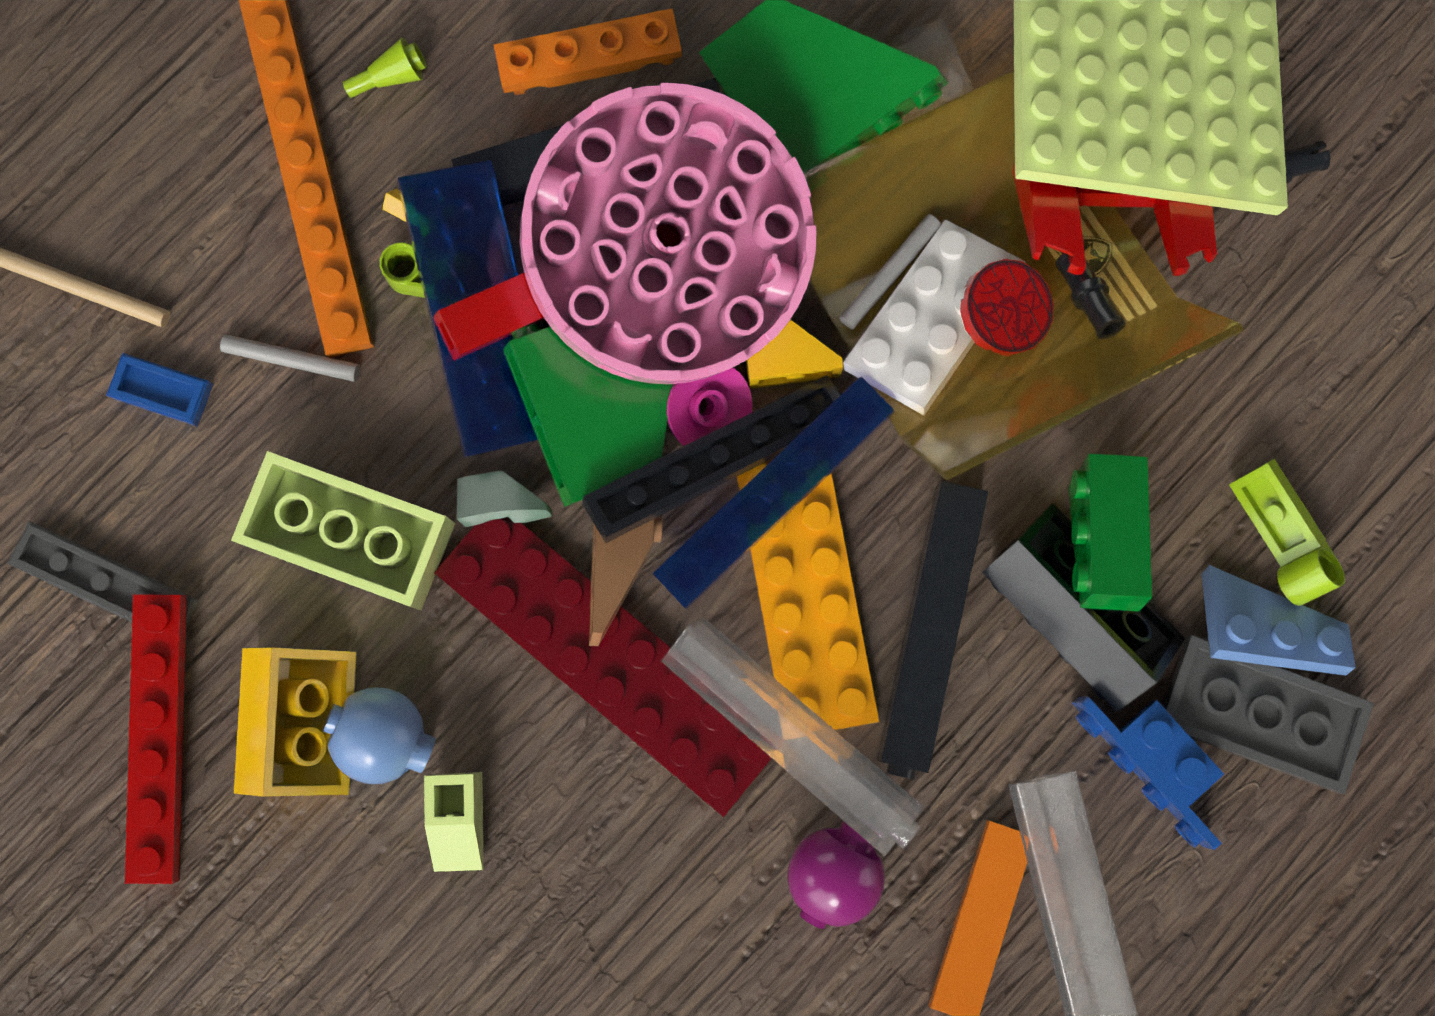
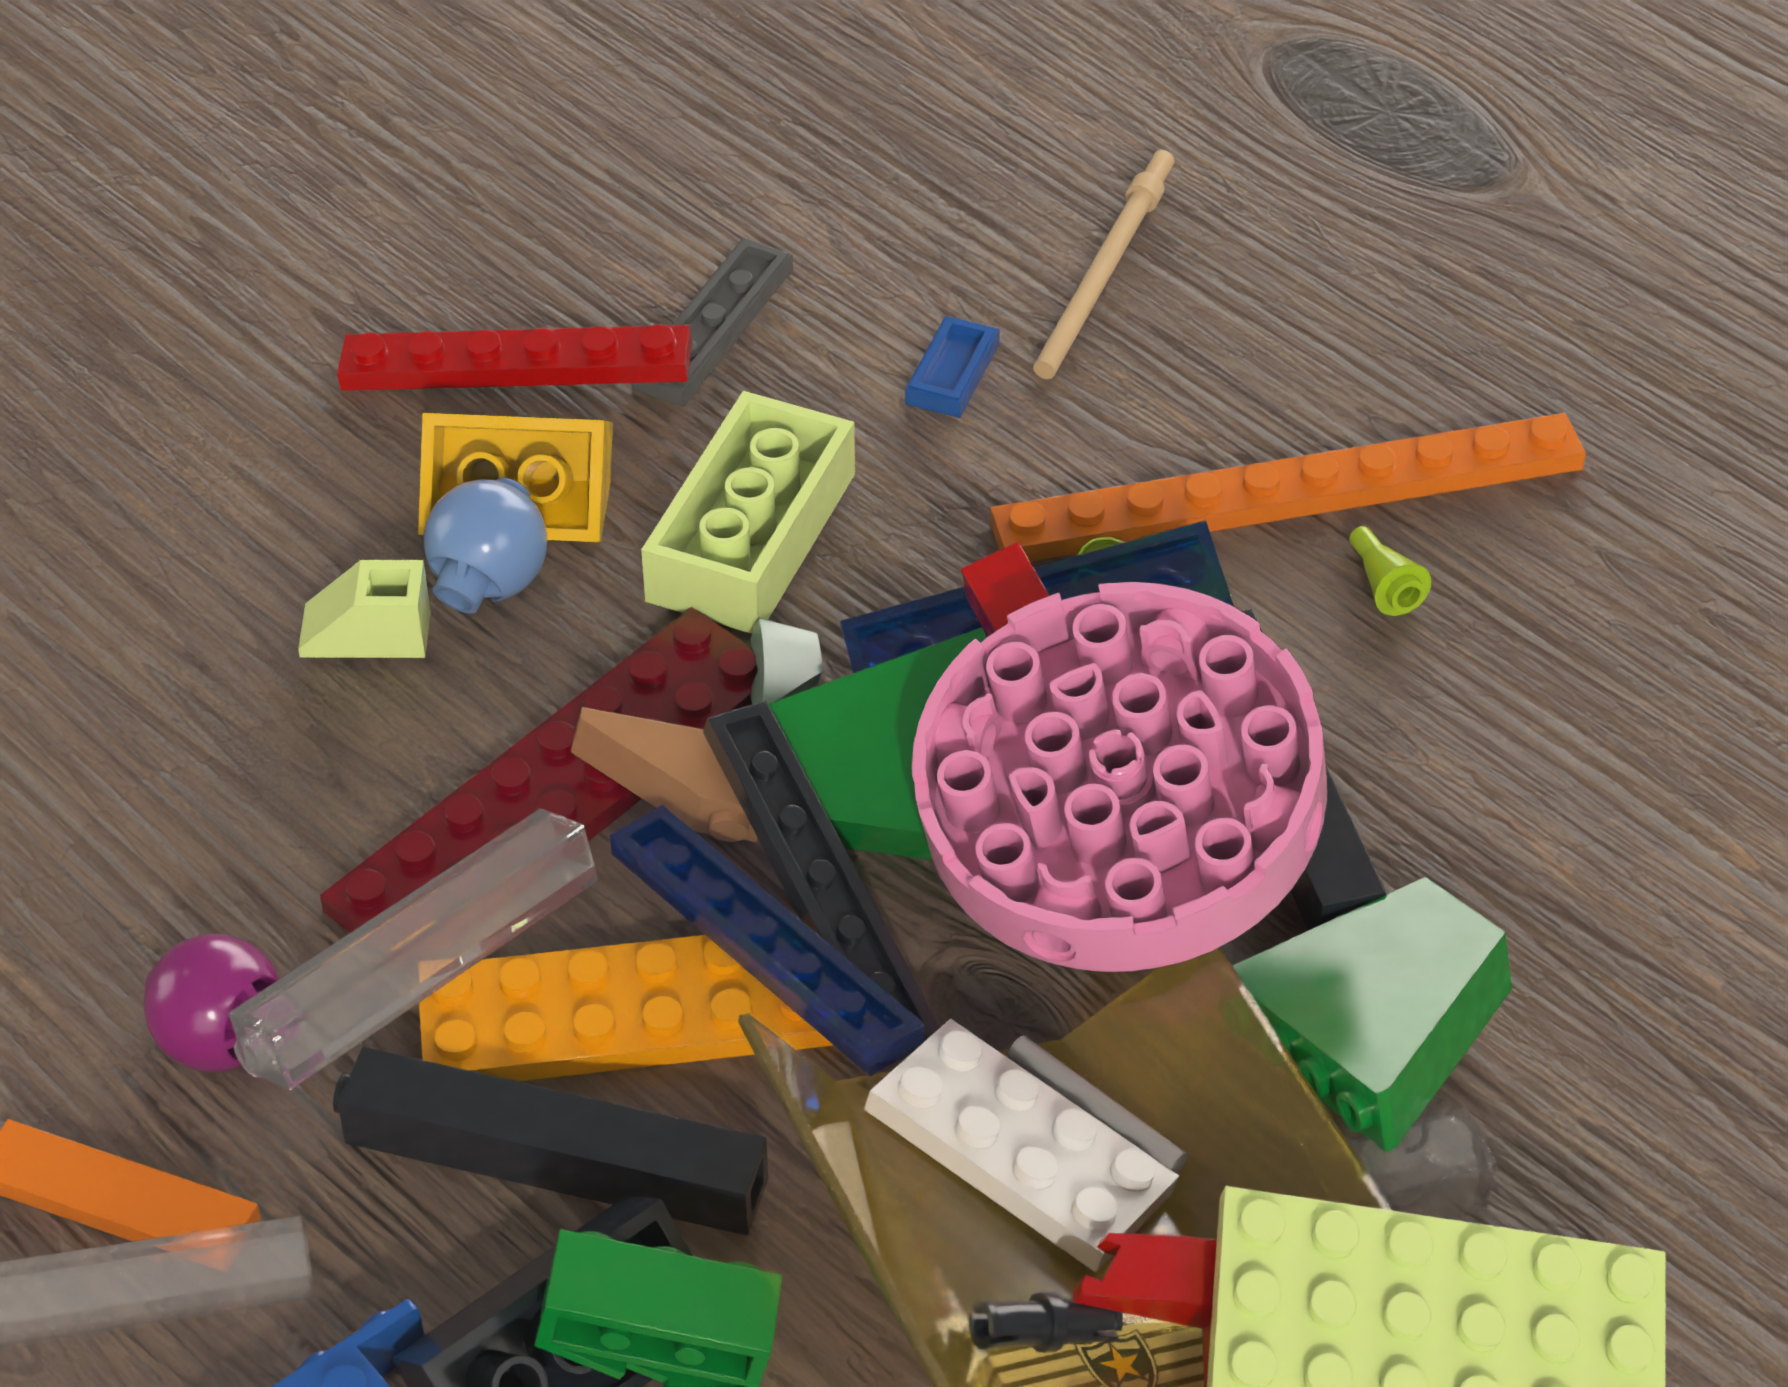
camera: 90 degrees right, 35 degrees down
(289, 357) = (989, 482): light grey bar -> none
(588, 52) = (1422, 766): orange piece -> none
(726, 399) = (897, 855): dark pink dish -> none
(792, 358) = (974, 975): yellow slope -> none
(1007, 307) = (1022, 1204): tile -> none

